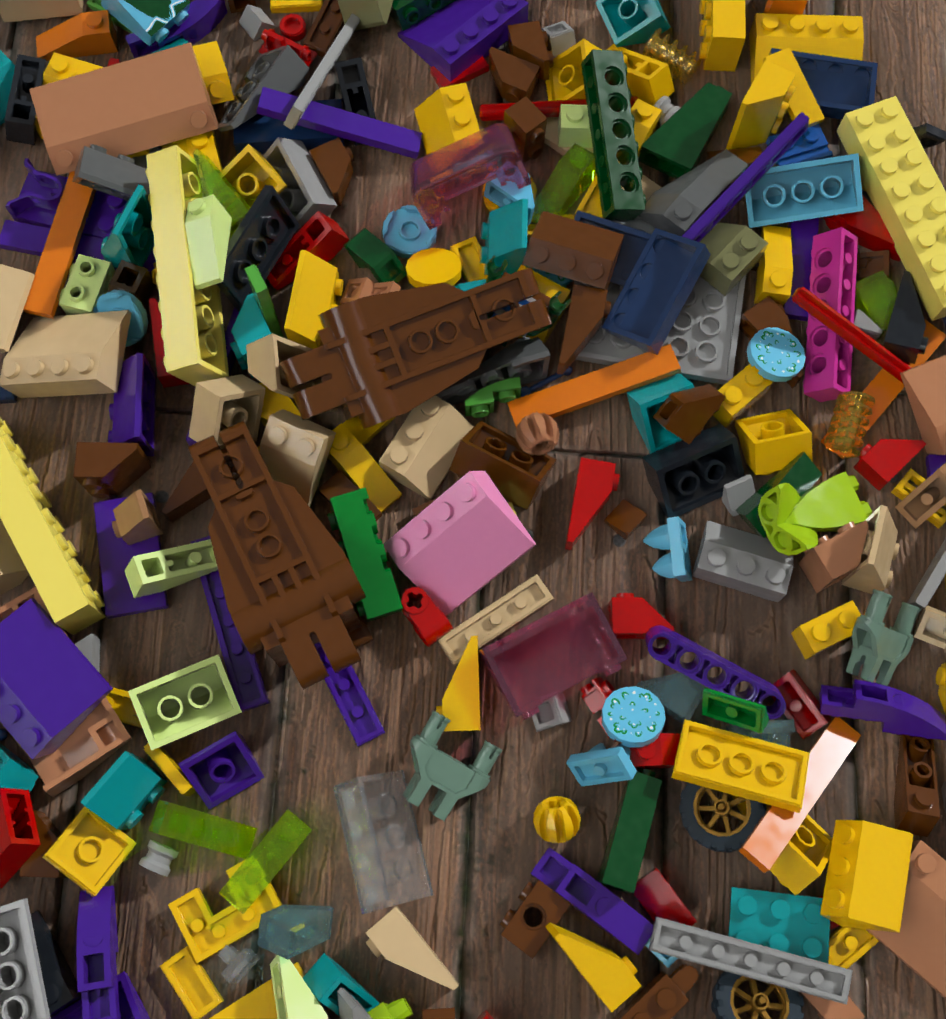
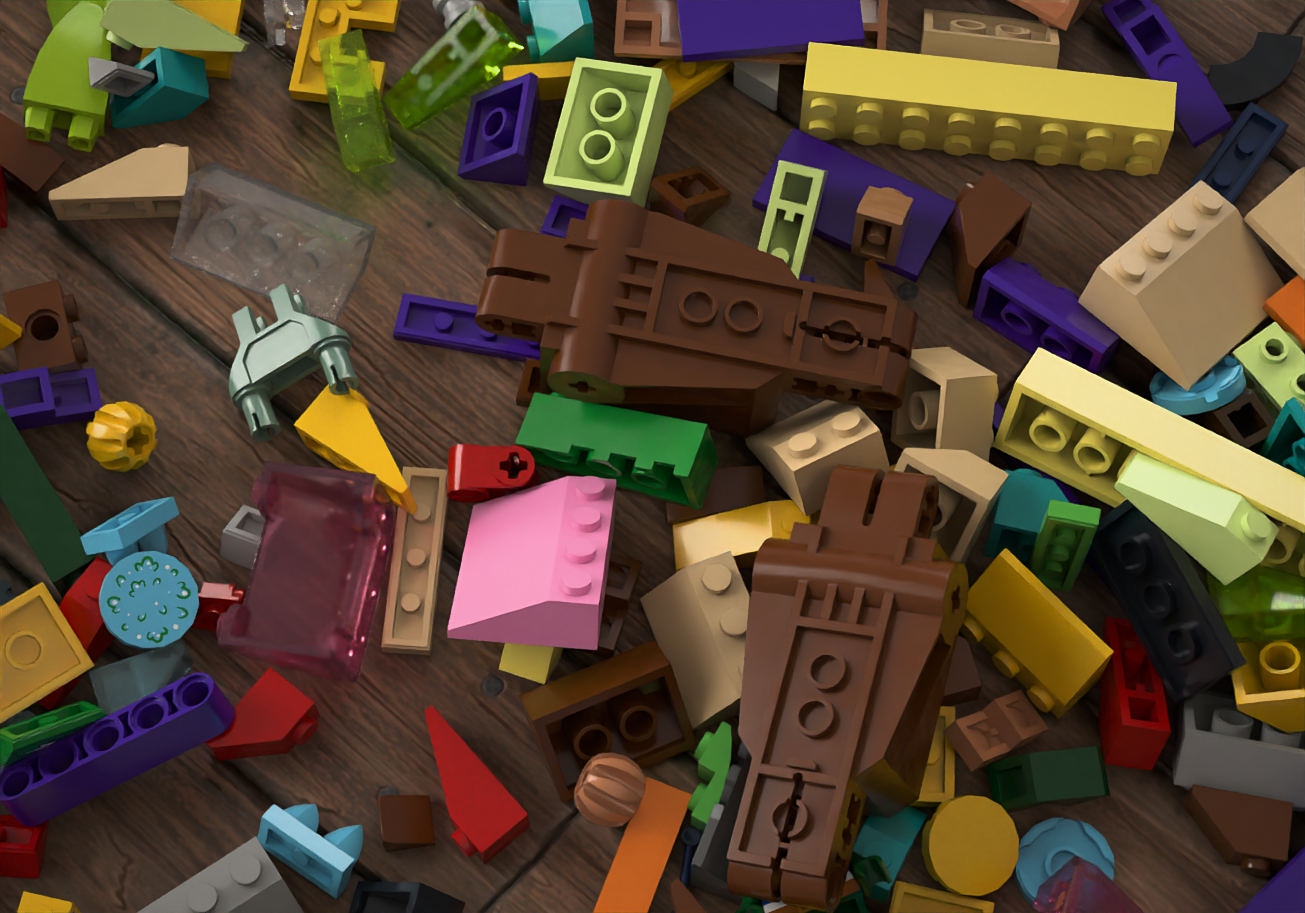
camera: 130 degrees right, 5 degrees down
(190, 638) = (687, 195): none -> reddish brown slope
(294, 928) = (258, 83): clear light blue slope -> none

